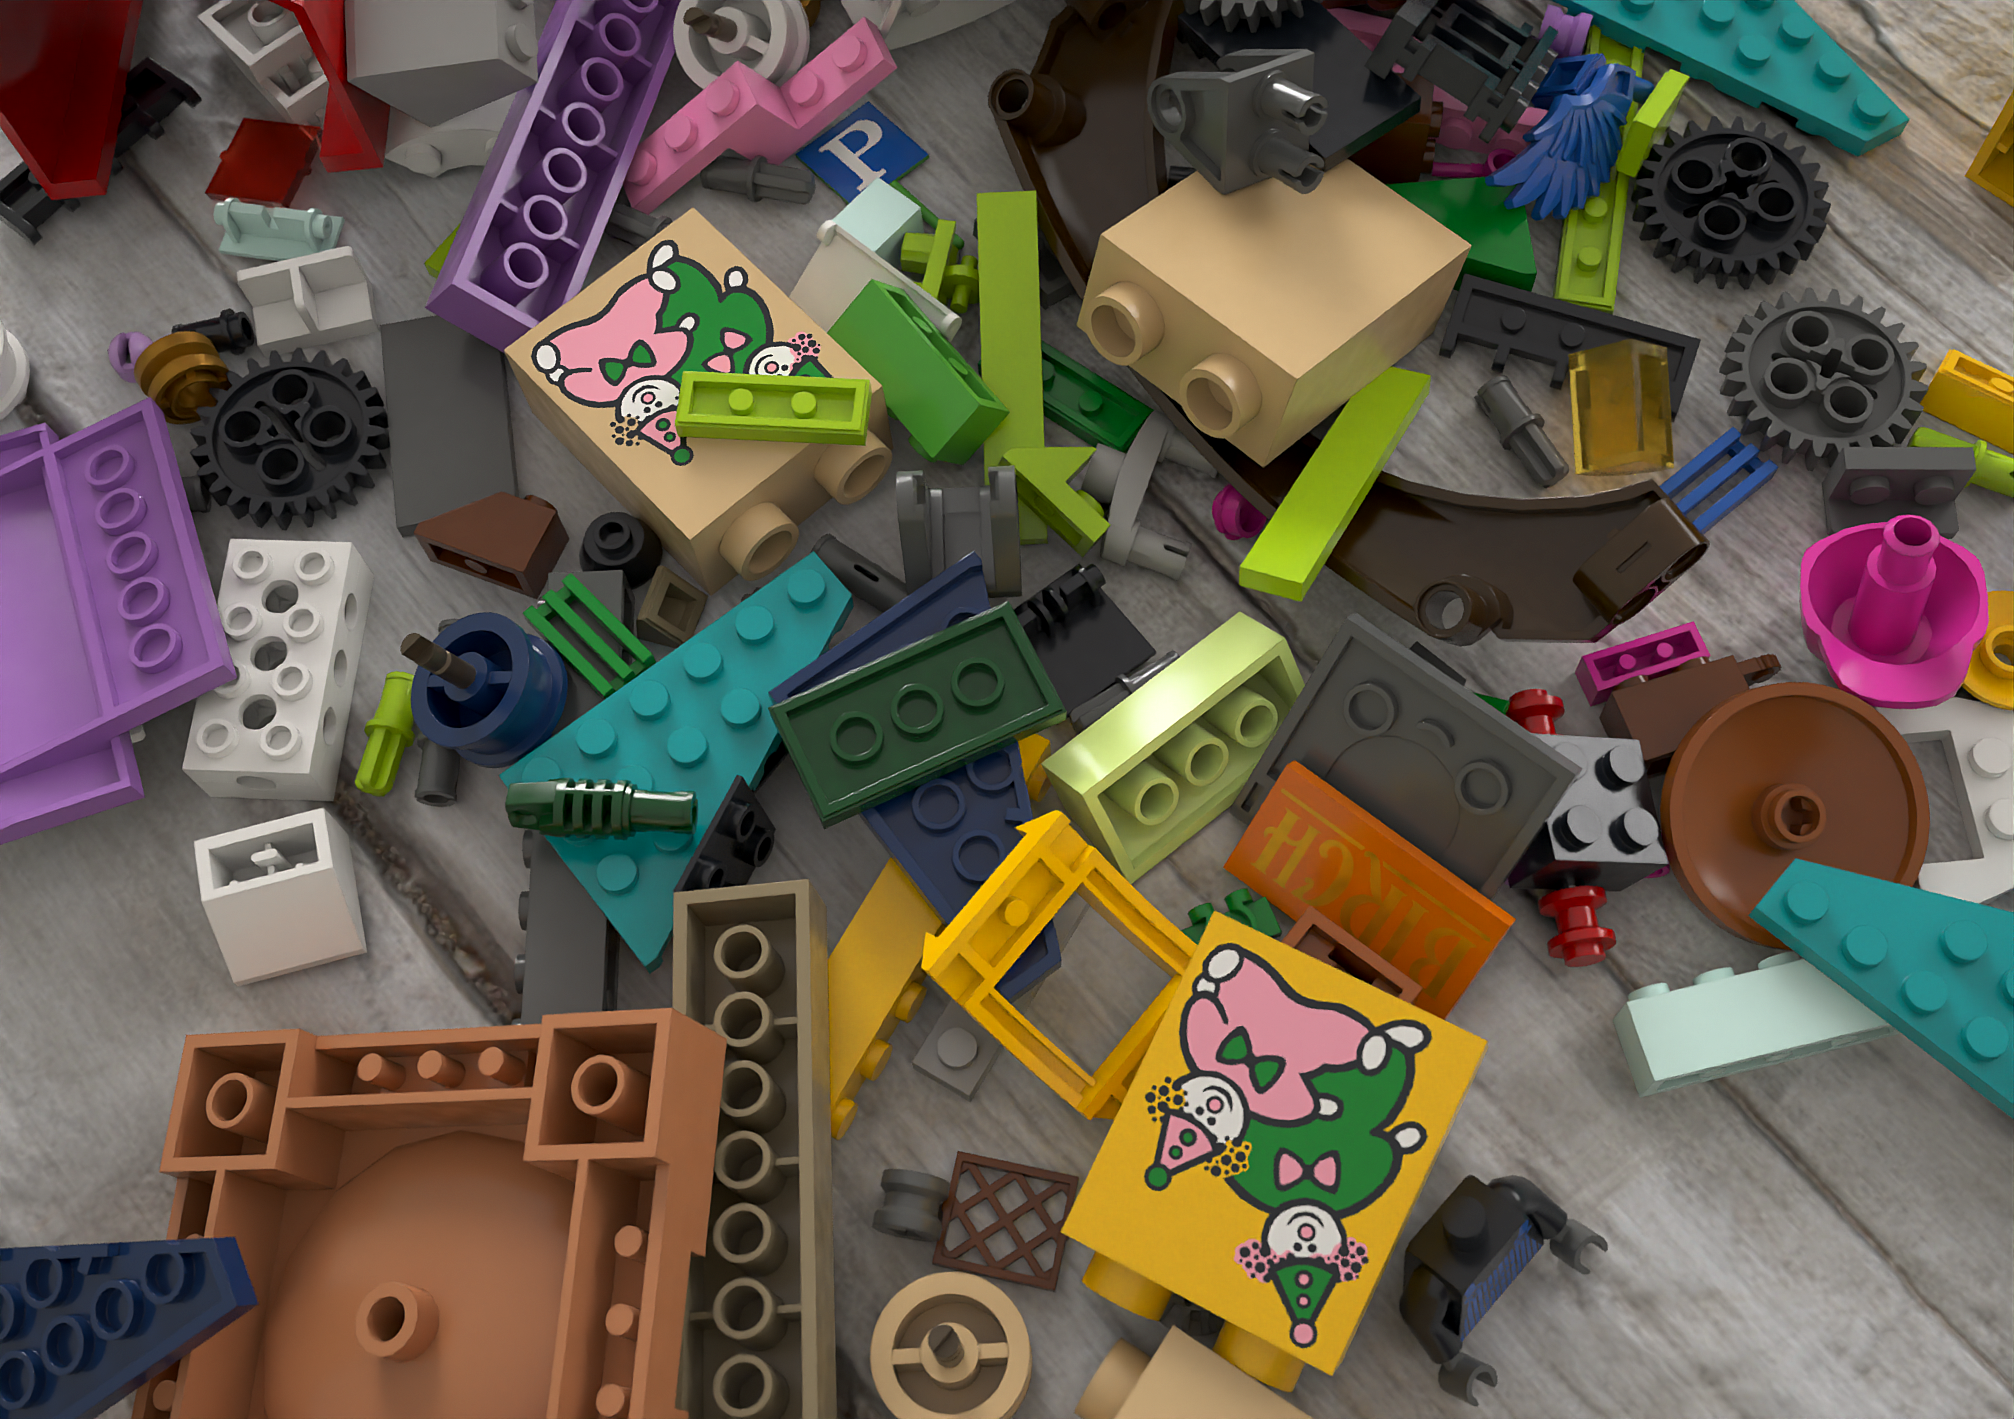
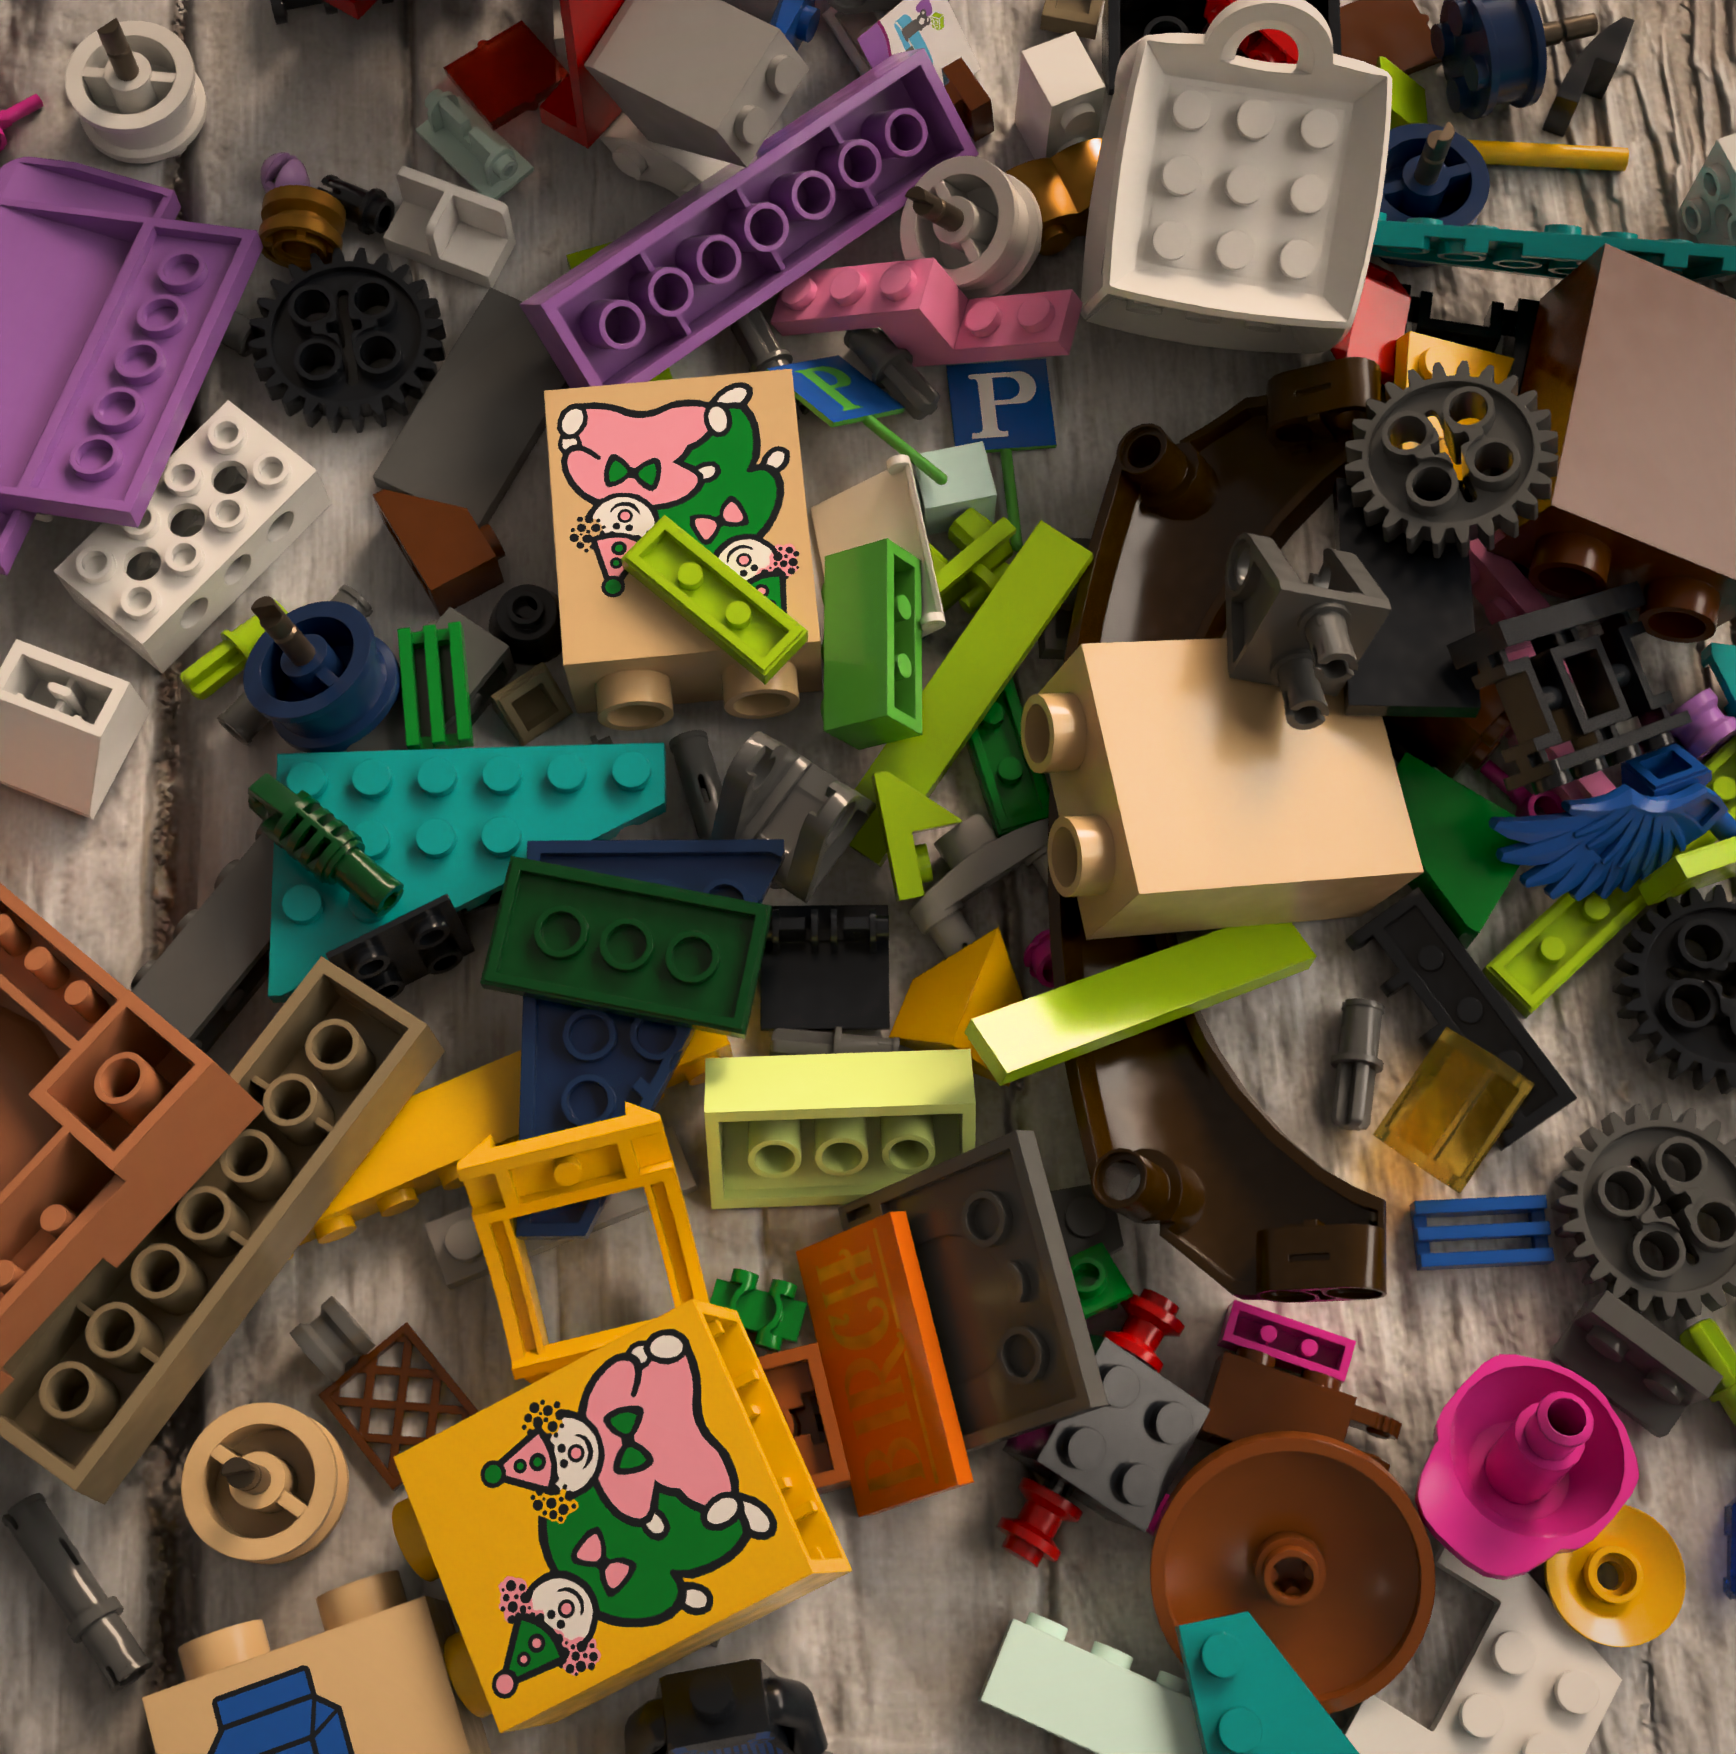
camera: 30 degrees right, 5 degrees up
(751, 217) = (845, 397): none -> piece
(1199, 590) = (954, 993): none -> yellow slope

